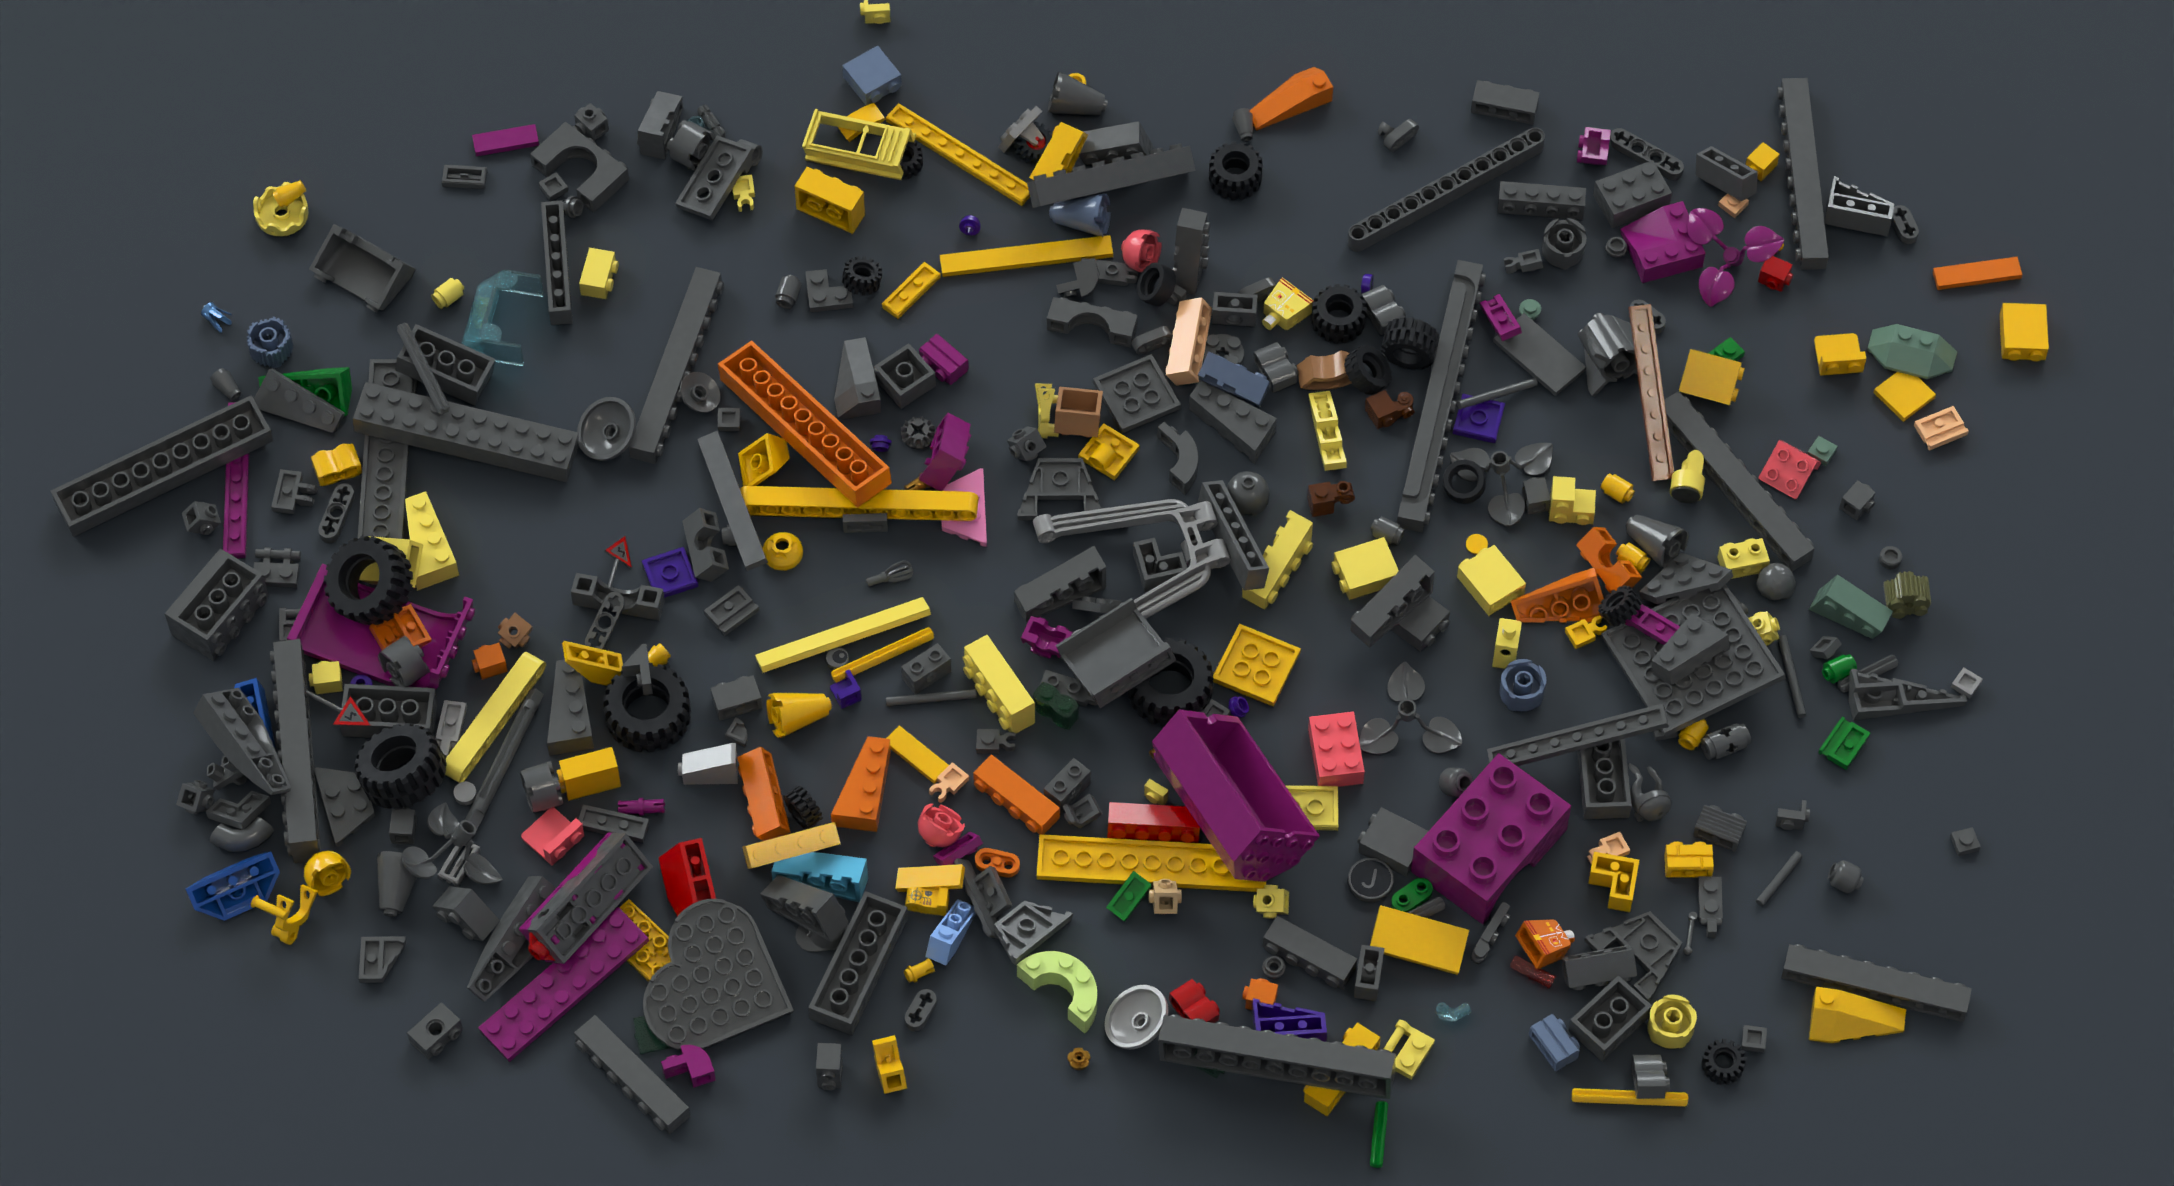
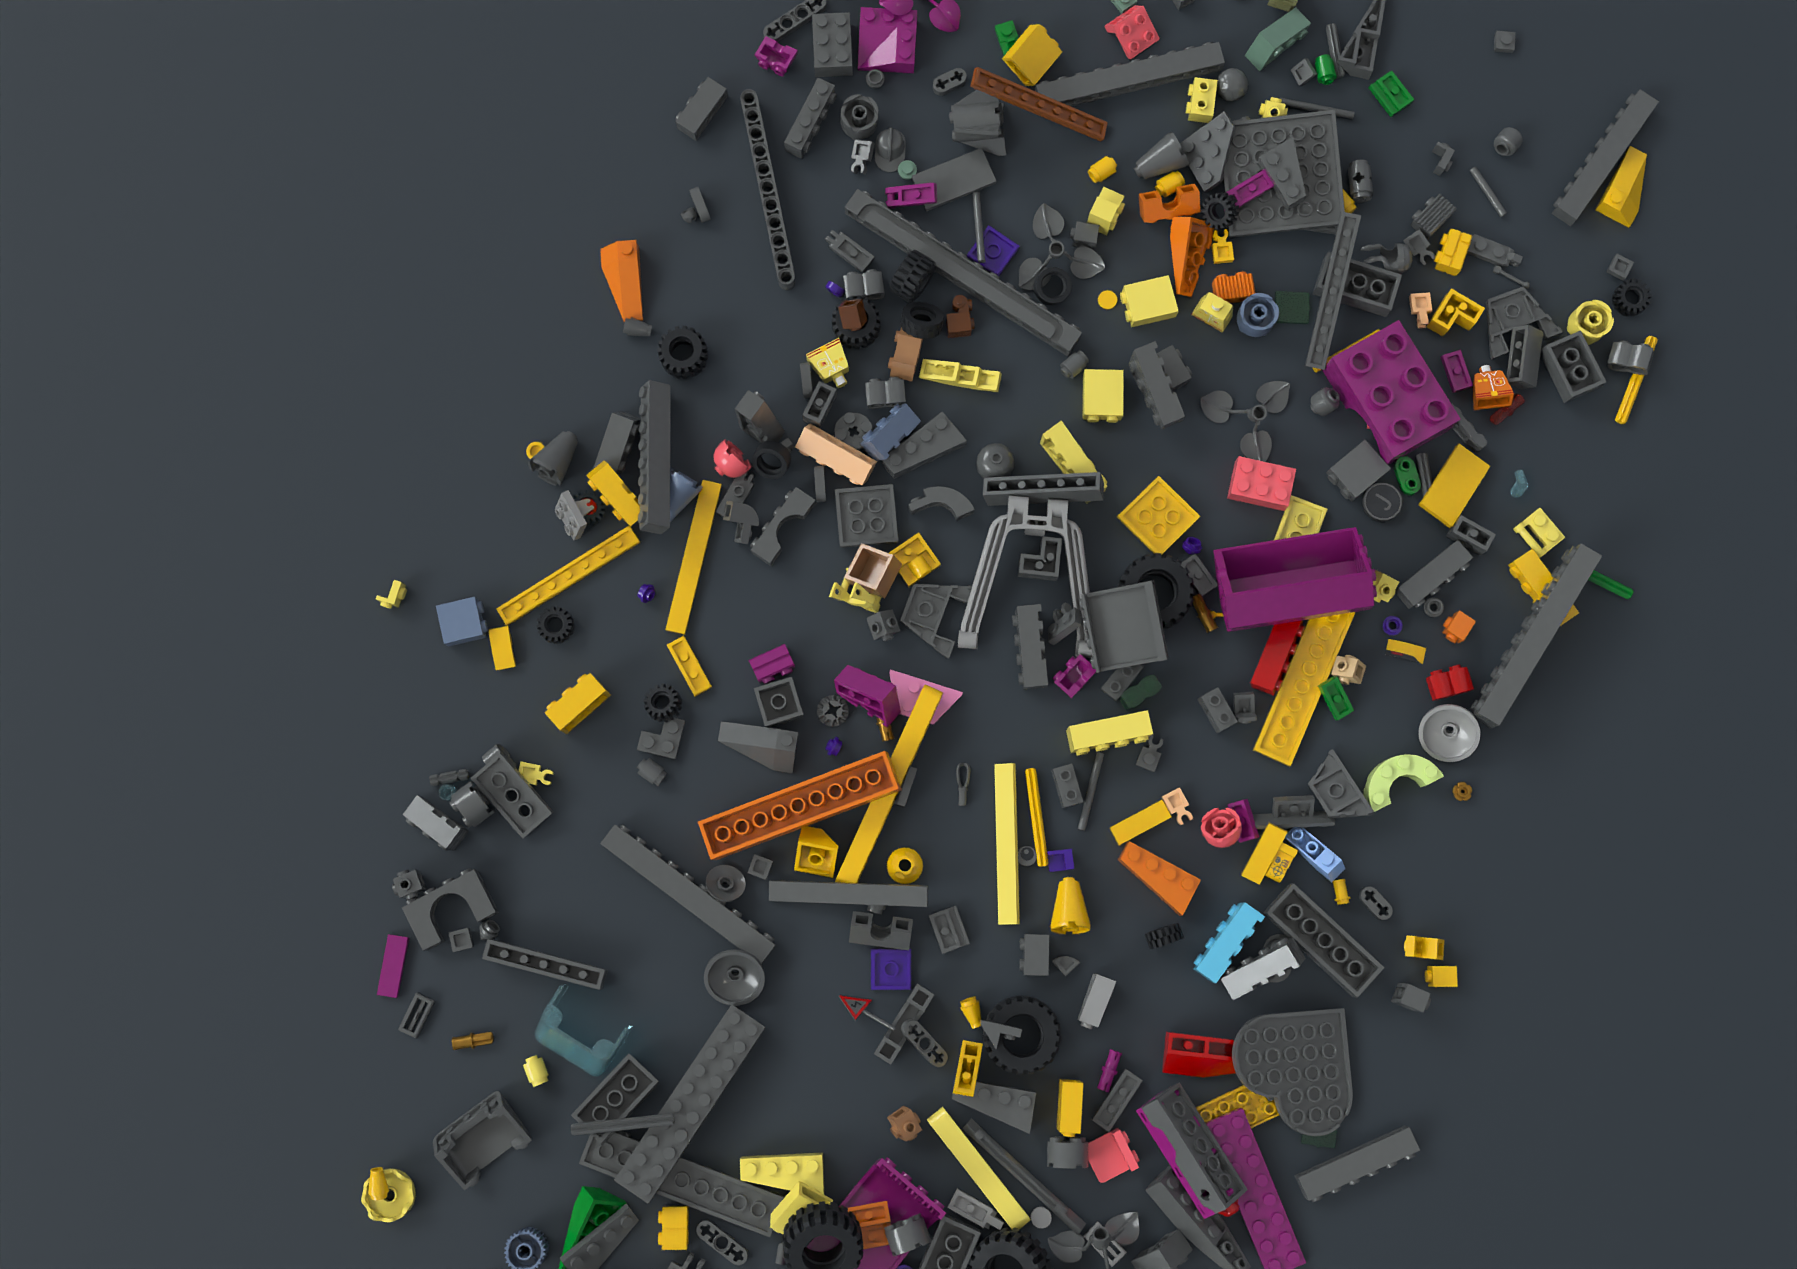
camera: 70 degrees left, 20 degrees up
(457, 230) = (472, 1040): none -> pearl gold axle
(489, 661) = (922, 1155): orange brick -> none
(598, 273) = (568, 930): light yellow brick -> none
(694, 1061) = (1365, 1105): magenta brick -> none
(763, 794) = (1139, 964): orange brick -> none
(791, 845) = (1209, 981): yellow arch -> none
(865, 1097) = (1441, 976): none -> yellow brick
(888, 155) = (551, 633): light yellow piece -> none
(999, 860) = (1265, 793): orange plate -> none
(1016, 795) = (1212, 755): orange brick -> none
(1155, 793) = (1249, 642): light yellow plate -> none
(1213, 958) = (1405, 651): none -> yellow sticker
(1235, 926) = (1396, 621): none -> dark purple plate
(1285, 1021) = (1497, 618): dark purple wedge -> none
(1324, 496) = (1027, 399): reddish brown brick -> none
(1339, 296) = (852, 314): none -> reddish brown brick
(1415, 286) = (850, 251): none -> dark grey hinge
(1542, 651) = (1233, 288): none -> orange brick
(1546, 287) = (890, 149): none -> dark grey piece
(1549, 718) = (1292, 307): none -> clear green piece
(1554, 905) = (1456, 371): none -> magenta plate
(1554, 1042) = (1574, 417): sand blue brick -> none
(1679, 823) = (1418, 244): none -> dark grey plate
(1688, 482) = (1123, 110): light yellow piece -> none

